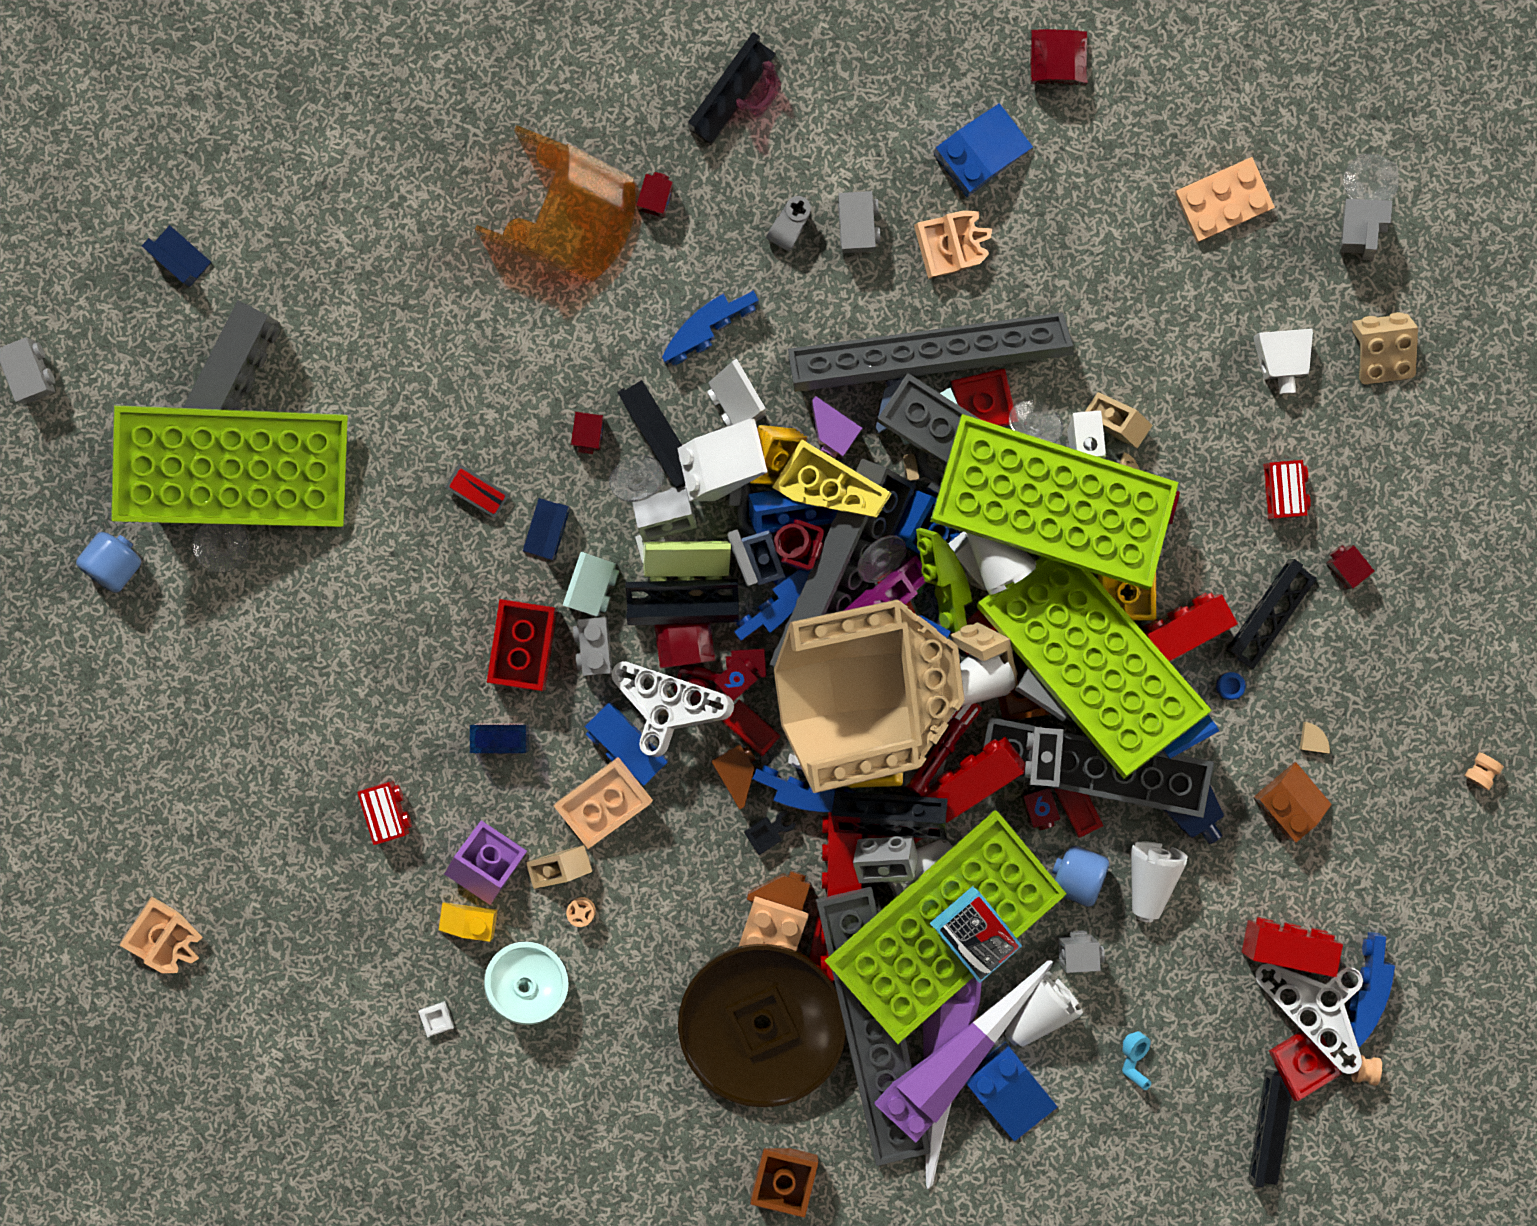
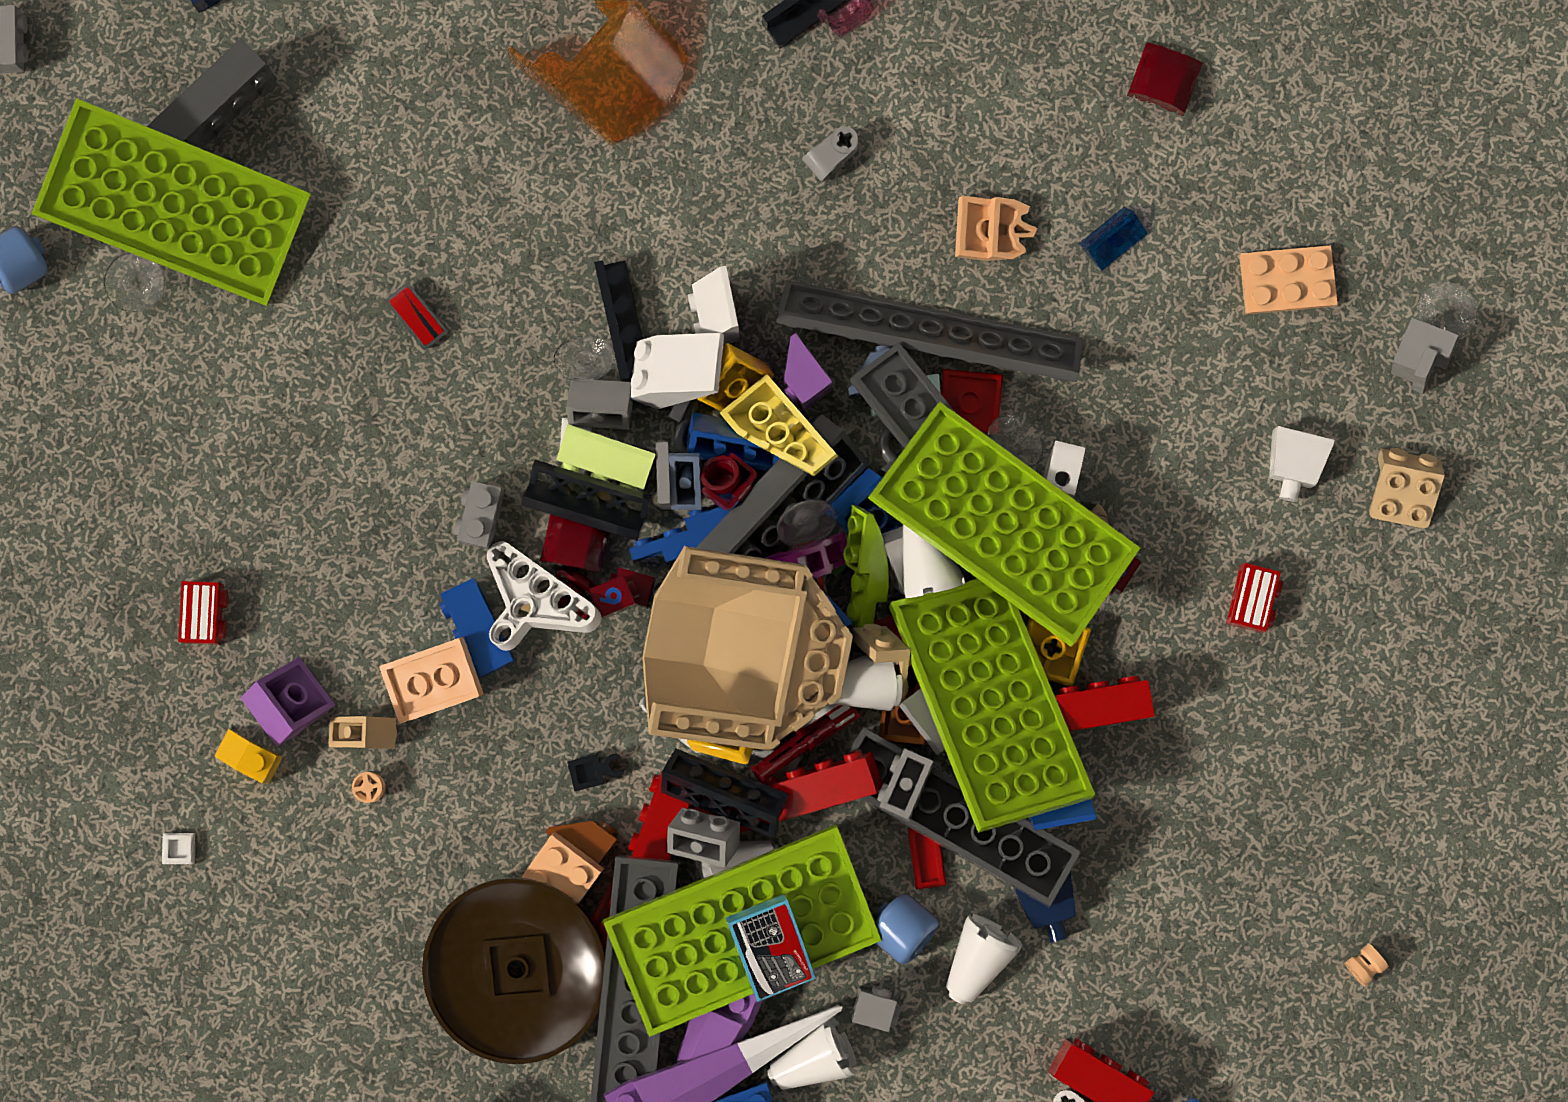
camera: 20 degrees right, 5 degrees down
(499, 738) = (348, 577): clear blue brick -> none
(522, 645) = (406, 488): red brick -> none
(529, 966) = (293, 825): light aqua dish -> none
(546, 529) = (474, 379): dark blue panel -> none
(587, 432) = (550, 294): dark red brick -> none
(590, 584) = (498, 450): light aqua slope -> none
(655, 194) = (704, 78): dark red brick -> none
(697, 331) = (698, 229): blue slope -> none
(736, 771) = (581, 696): dark orange slope -> none
(751, 728) = (612, 656): red tile -> none
(793, 793) = (632, 737): blue slope -> none
(857, 222) = (900, 175): light grey brick -> none
(910, 466) = (871, 444): tan tile -> none
(982, 149) = (1054, 145): blue slope -> none
(1040, 808) = (886, 843): dark red brick -> none
(1060, 214) = (1113, 238): none -> clear blue slope
(1121, 420) = (1105, 468): tan slope -> none
(1230, 685) = (1129, 784): blue tile -> none
(1265, 607) = (1189, 714): black fence -> none
(1293, 802) = (1154, 929): dark orange slope -> none
(1313, 739) = (1198, 870): tan tile -> none
(1349, 566) = (1294, 700): dark red brick -> none

